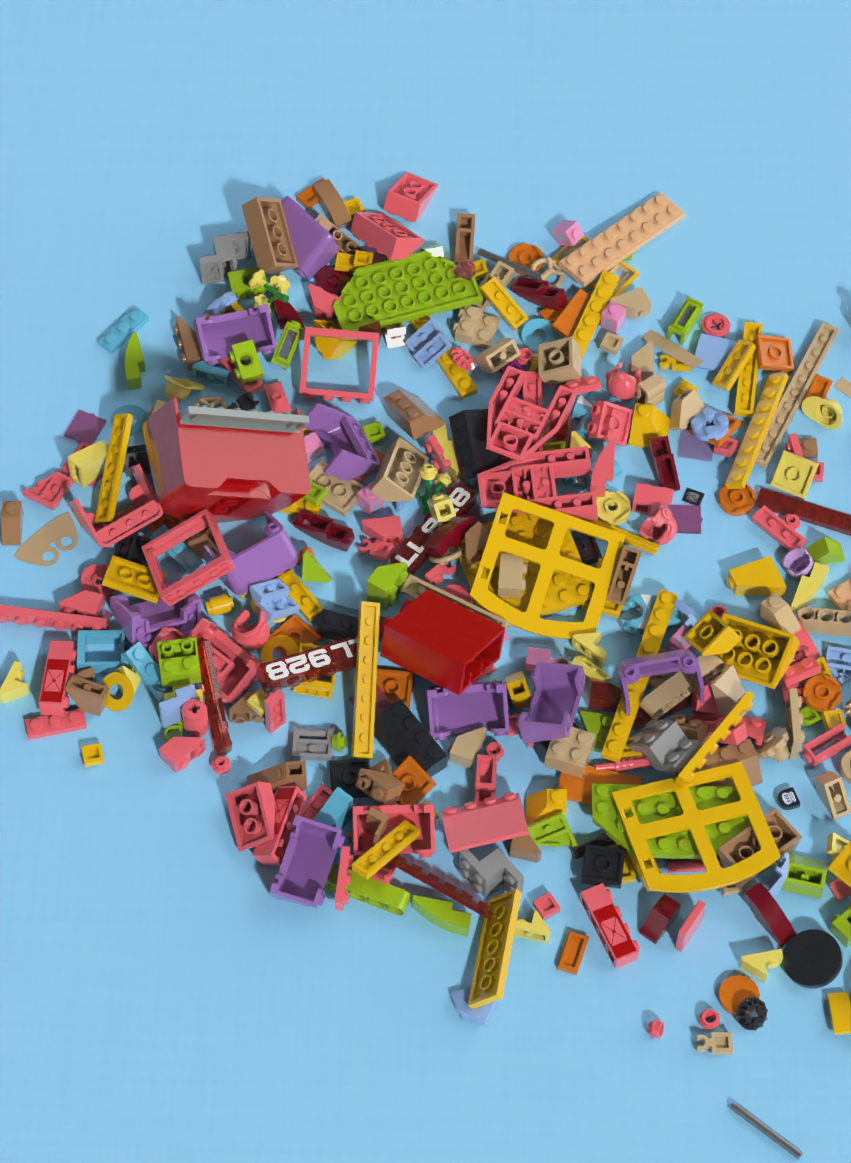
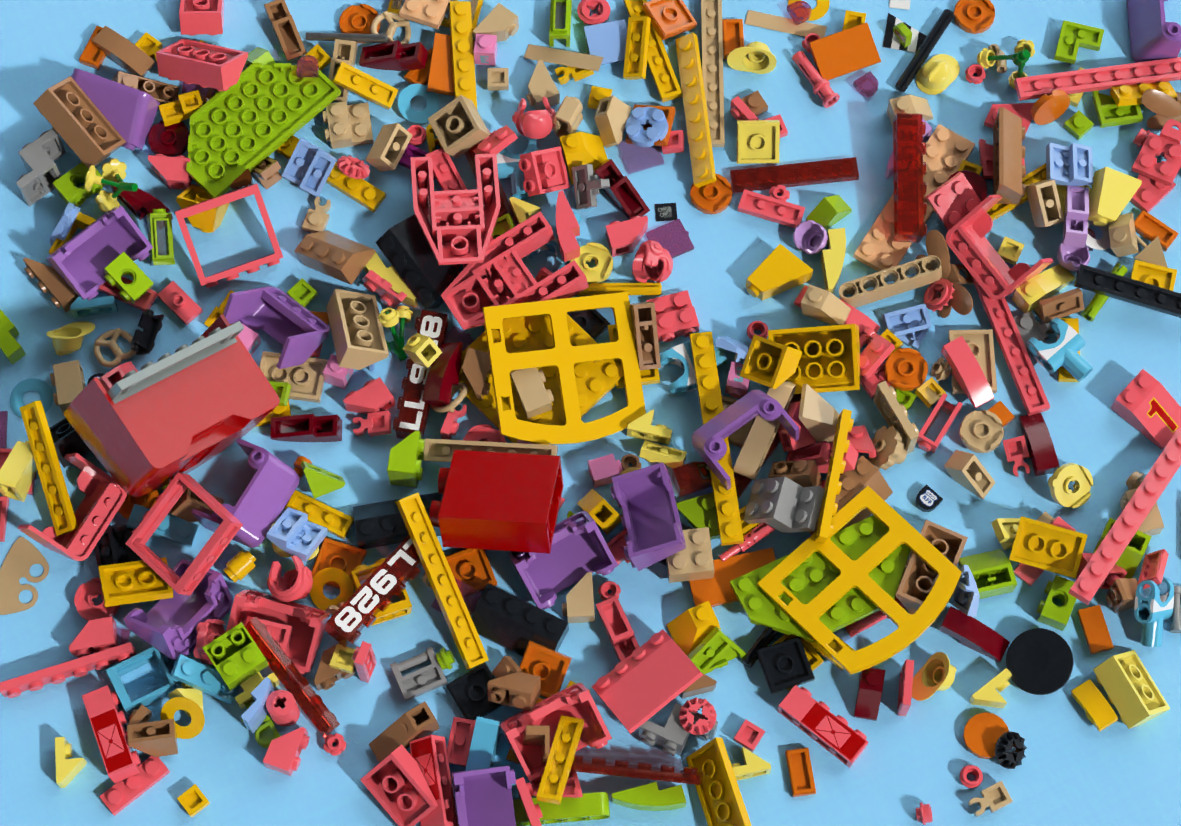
camera: 25 degrees left, 10 degrees up
(416, 385) = (317, 219): none -> tan plate
(509, 872) = (701, 726): none -> coral gear
(638, 449) = (587, 186): none -> light grey hinge
(655, 573) = (675, 316): none -> coral plate
(719, 931) = (934, 676): none -> light yellow piece

